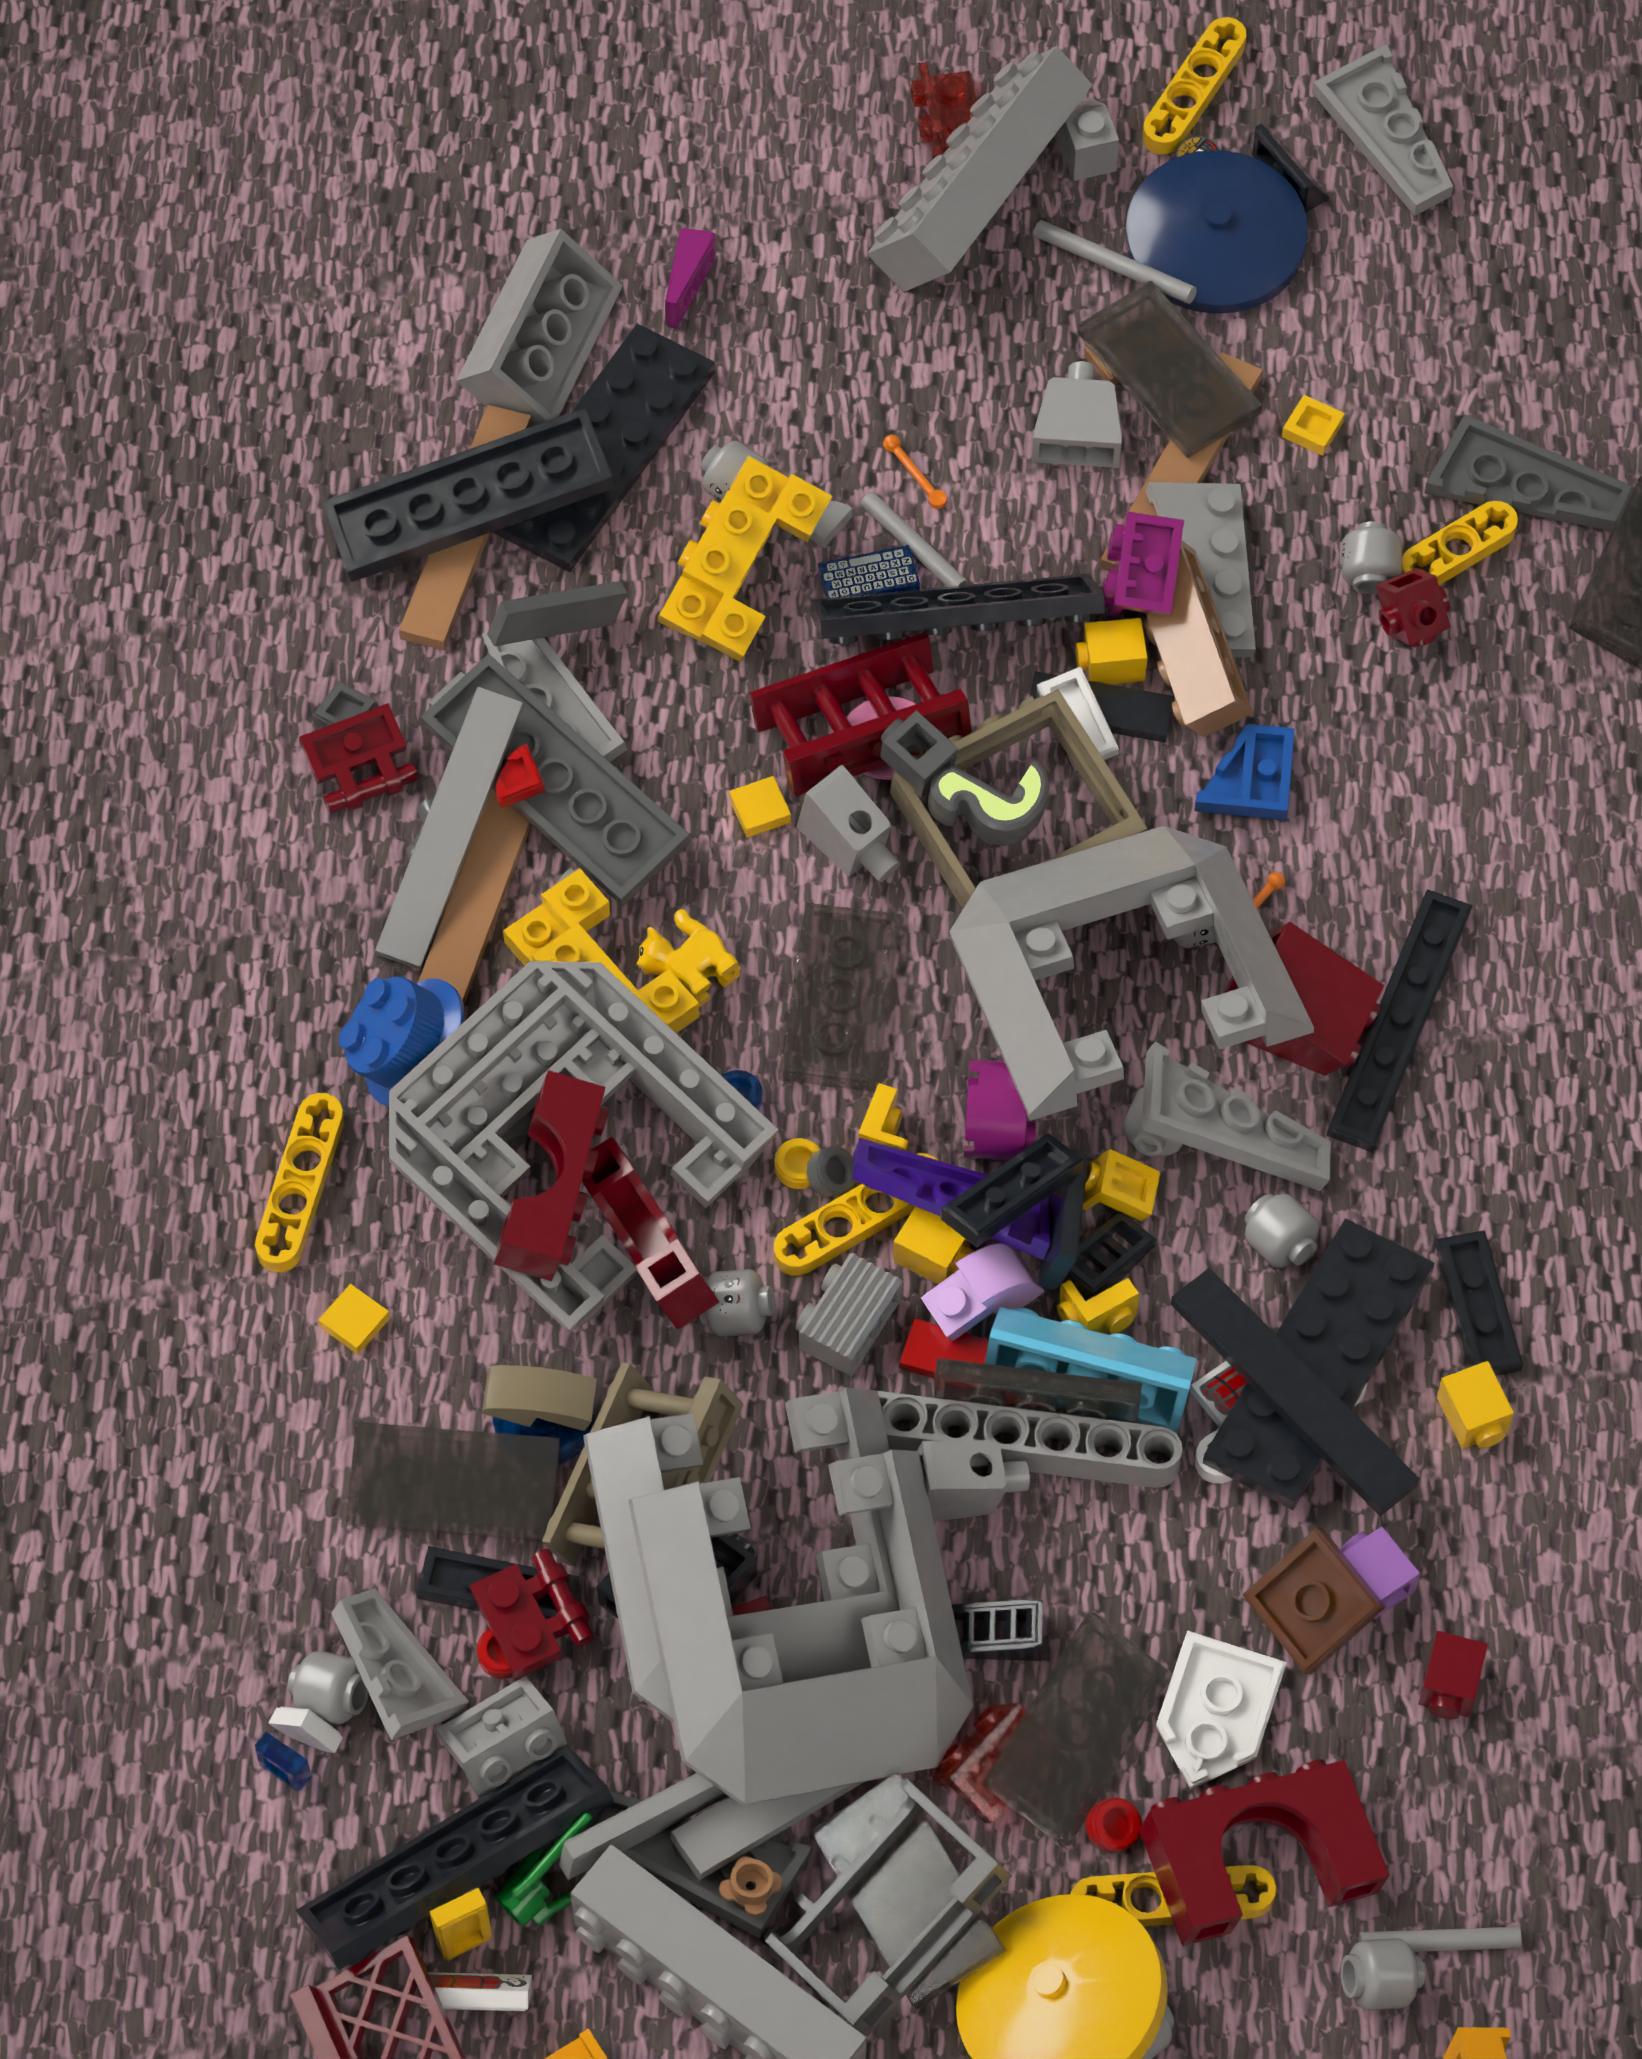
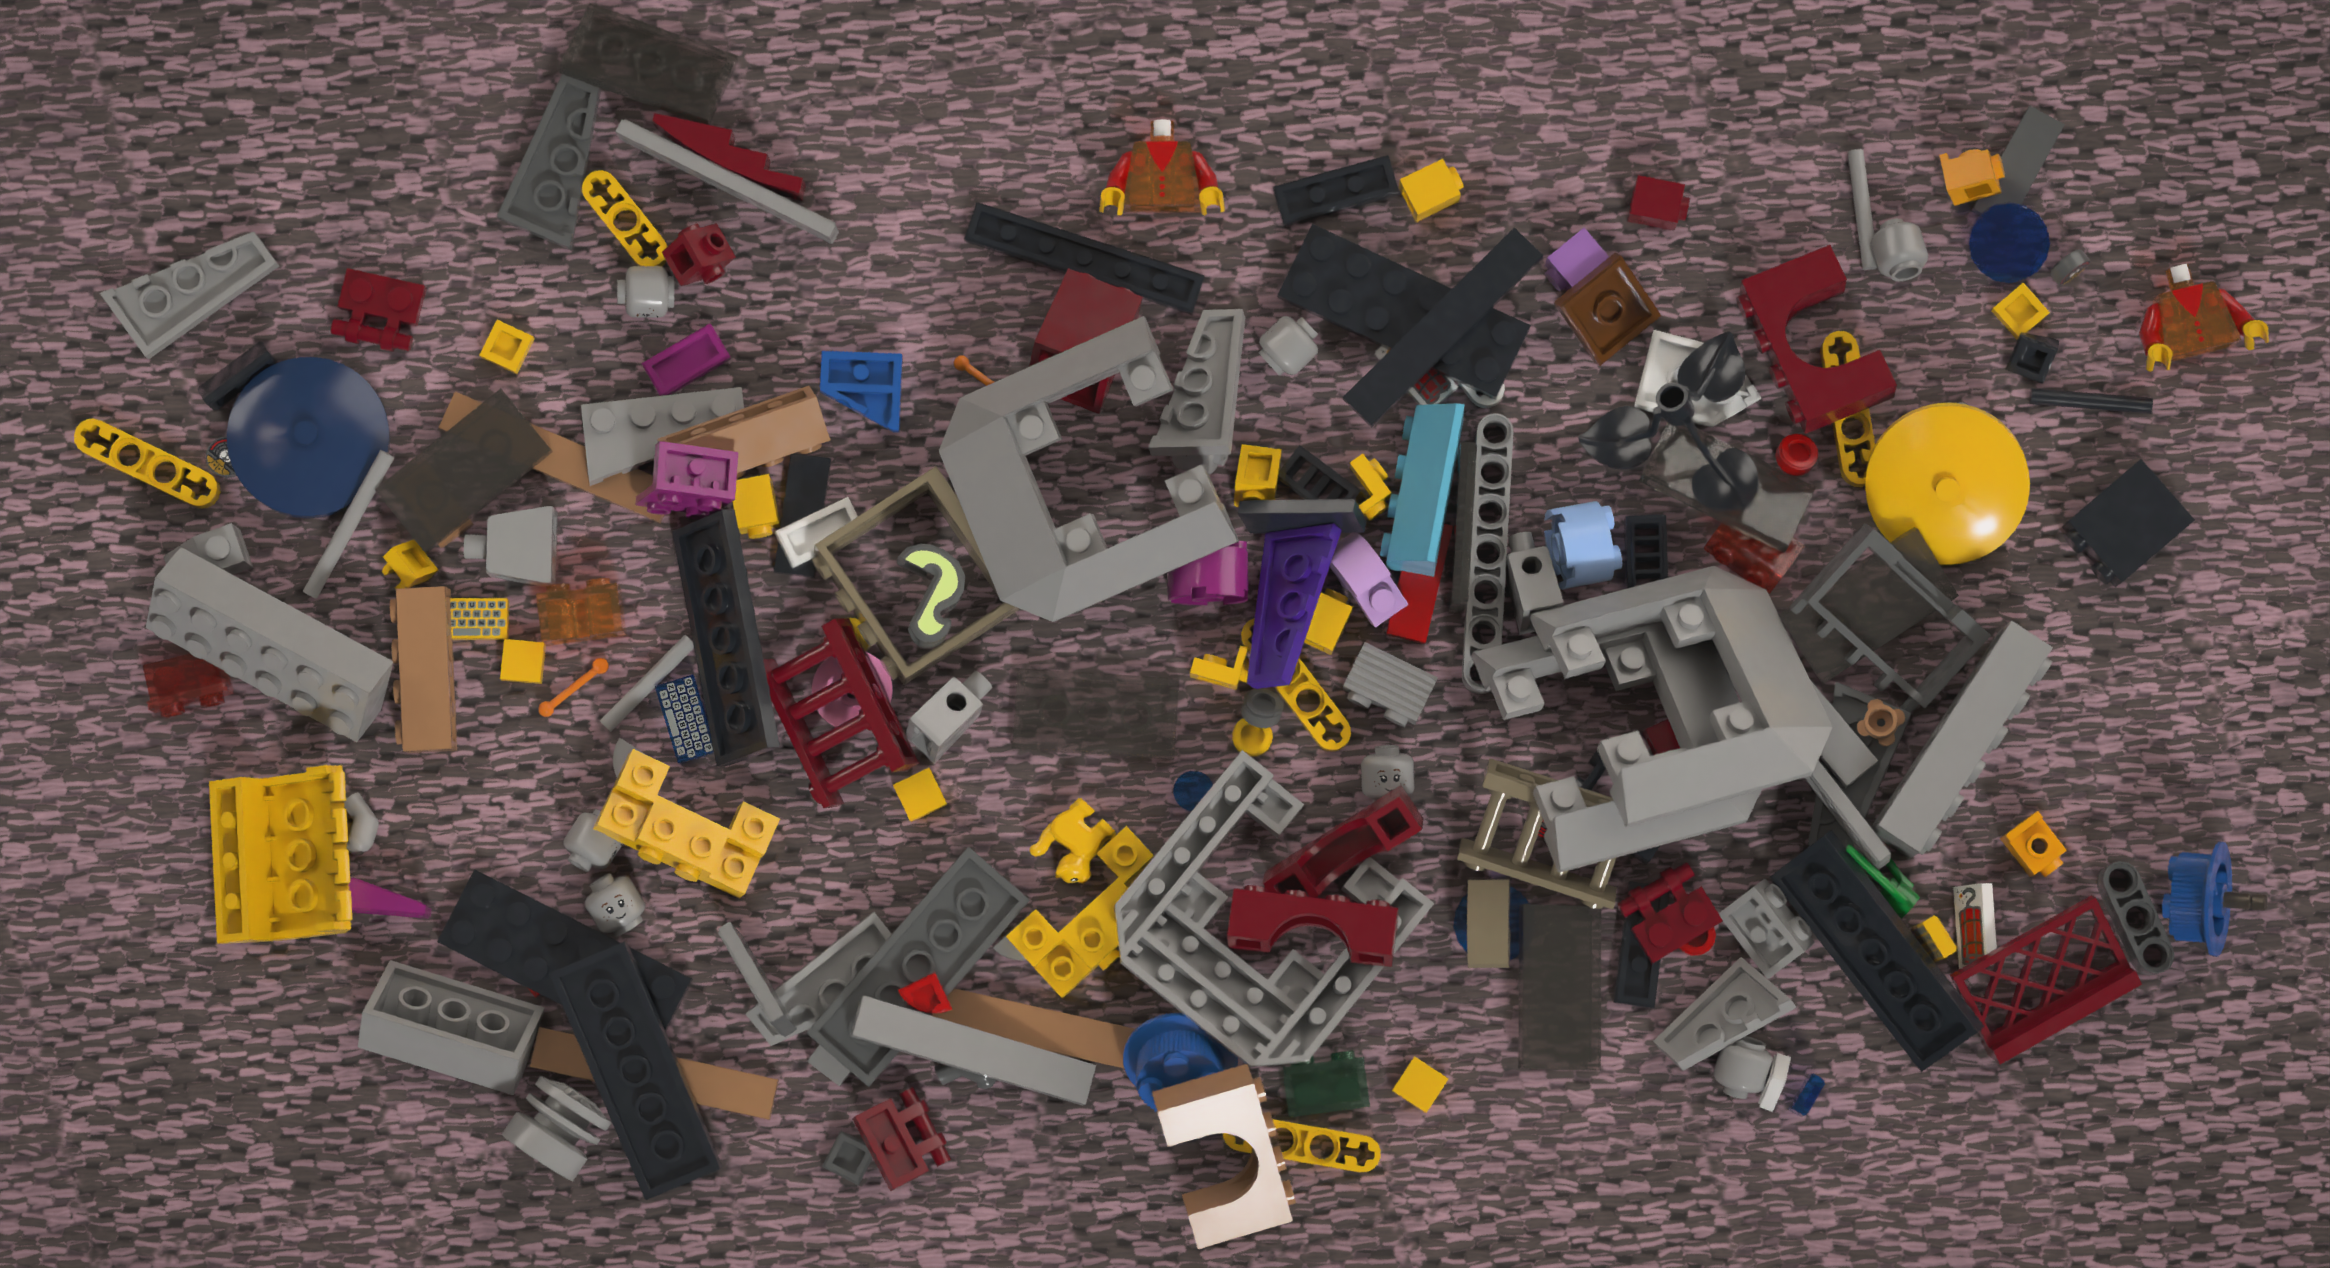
camera: 90 degrees left, 20 degrees up
(343, 1072) = (1229, 1105): none -> arch
(364, 1213) = (1326, 1085): none -> clear green bracket
(411, 412) = (557, 1128): none -> light grey wheel
(660, 490) = (615, 904): none -> light grey head
(744, 174) = (280, 856): none -> yellow slope
(773, 263) = (363, 827): none -> light grey arm
(917, 736) = (897, 641): dark grey brick -> none
(943, 323) = (425, 670): none -> medium nougat brick
(948, 423) = (523, 661): none -> yellow tile
(997, 475) = (581, 613): none -> clear orange brick
(1000, 374) = (479, 618): none -> tile
(1008, 1539) = (1582, 544): none -> light blue brick
(1012, 1190) = (1292, 554): black tile -> none
(1063, 314) = (409, 564): none -> yellow tile
(1146, 1609) = (1709, 371): none -> black plant
(1289, 600) = (686, 361): none -> magenta tile
(1374, 308) = (381, 298): none -> dark red plate
(1497, 1097) = (1162, 177): none -> torso
(1501, 647) = (727, 181): none -> light grey tile
(1535, 641) = (718, 147): none -> dark red slope

